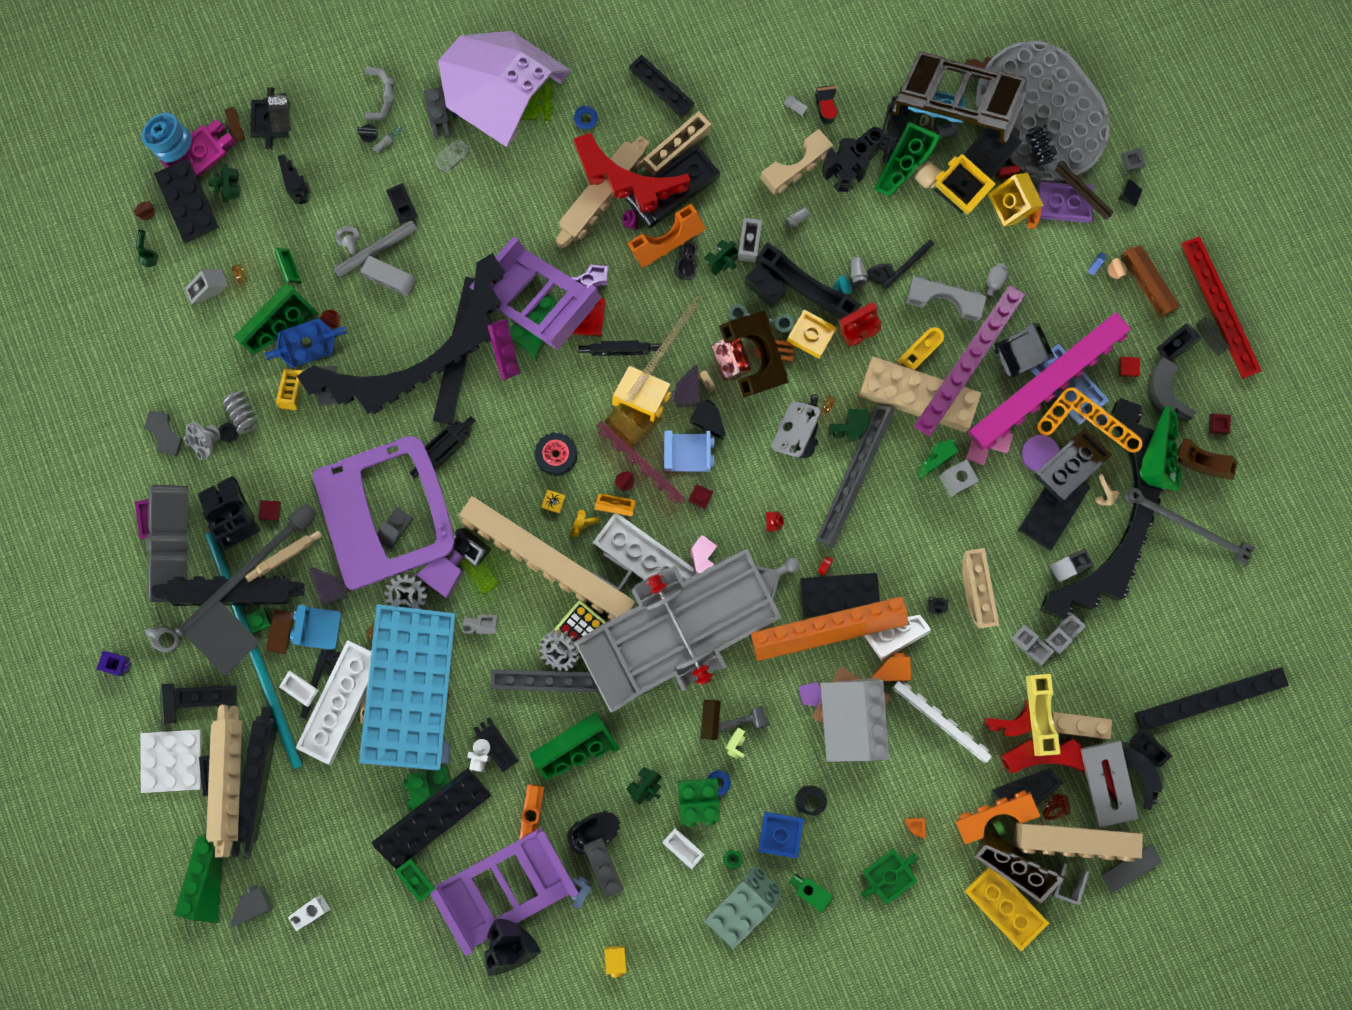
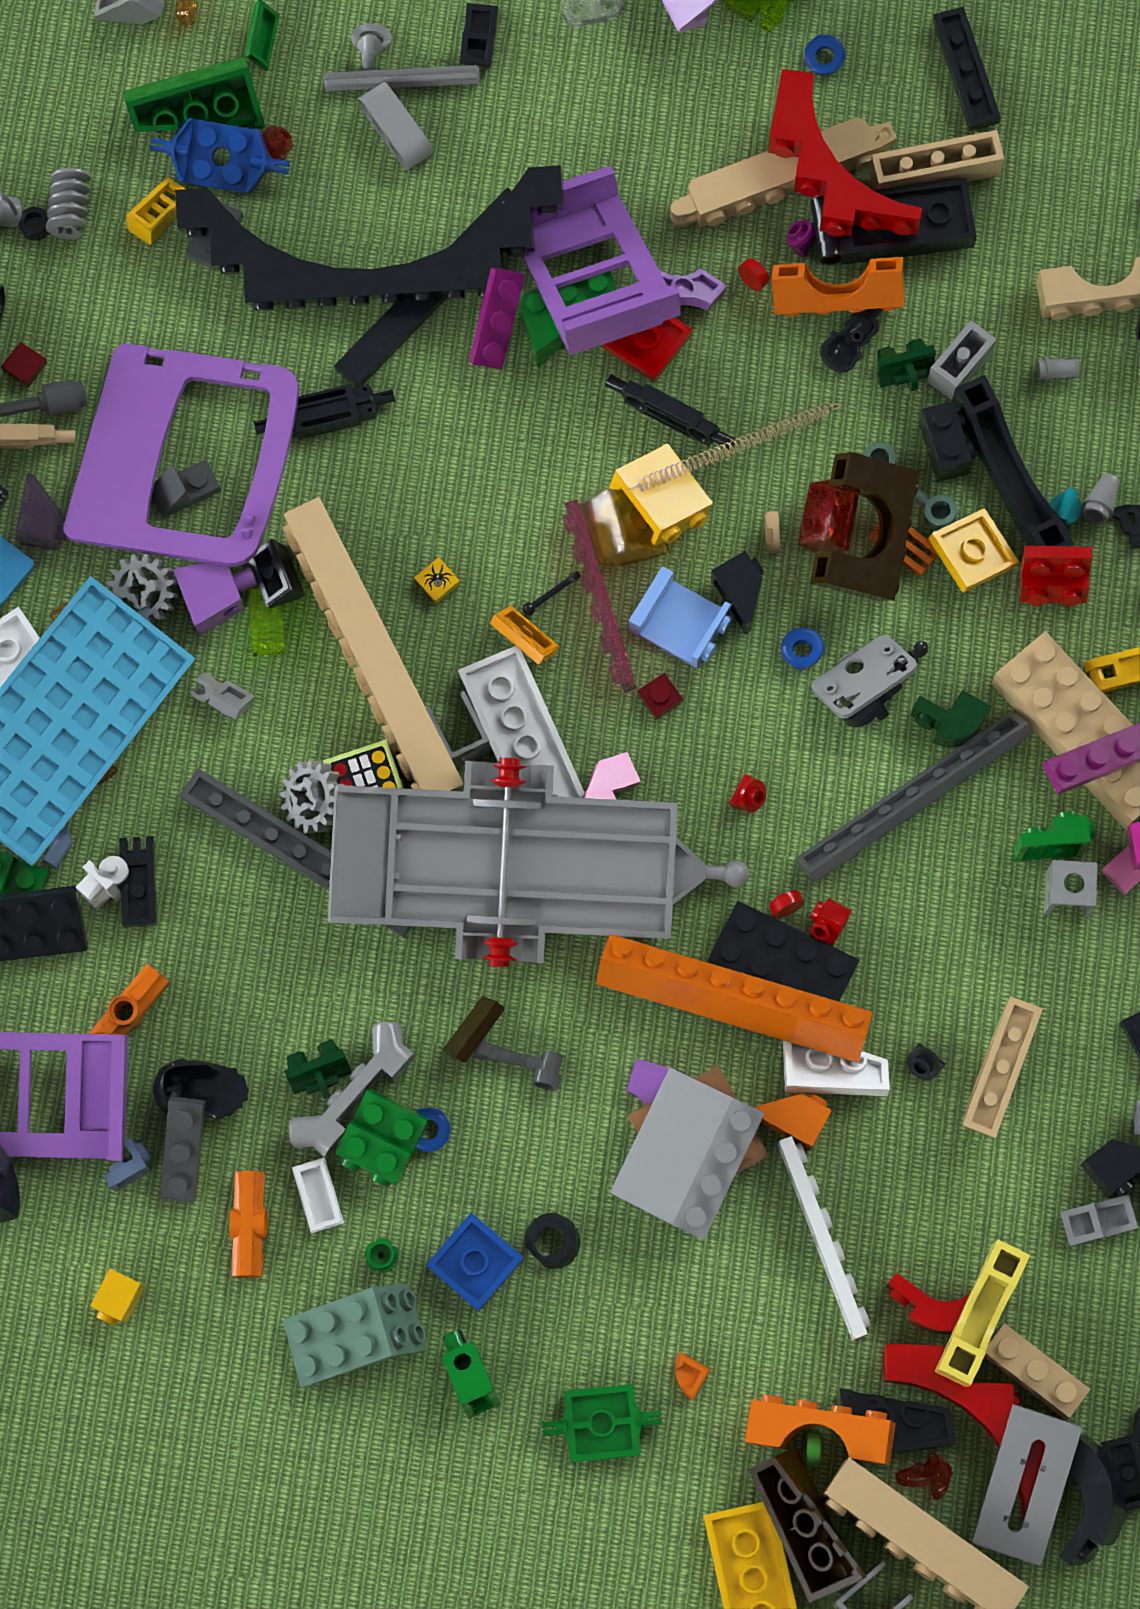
camera: 40 degrees right, 5 degrees down
(552, 443) = (485, 495): black wheel -> none
(574, 747) = (249, 950): green wedge -> none
(581, 523) = (458, 633): yellow piece -> none
(608, 489) = (529, 608): none -> black hinge
(618, 252) = (753, 274): none -> red tile
(624, 481) = (560, 609): dark red plate -> none
(658, 884) = (248, 1224): none -> orange piece
(667, 814) = (389, 1058): none -> light grey plate
(687, 390) = (735, 526): clear purple slope -> none
(736, 740) = (492, 1081): yellowish green bracket -> none
(756, 424) = (798, 636): none -> blue piece
(827, 405) = (935, 668): clear orange tile -> none
(851, 561) = (829, 920): none -> red plate
(1032, 645) = (1036, 1209): light grey slope -> none

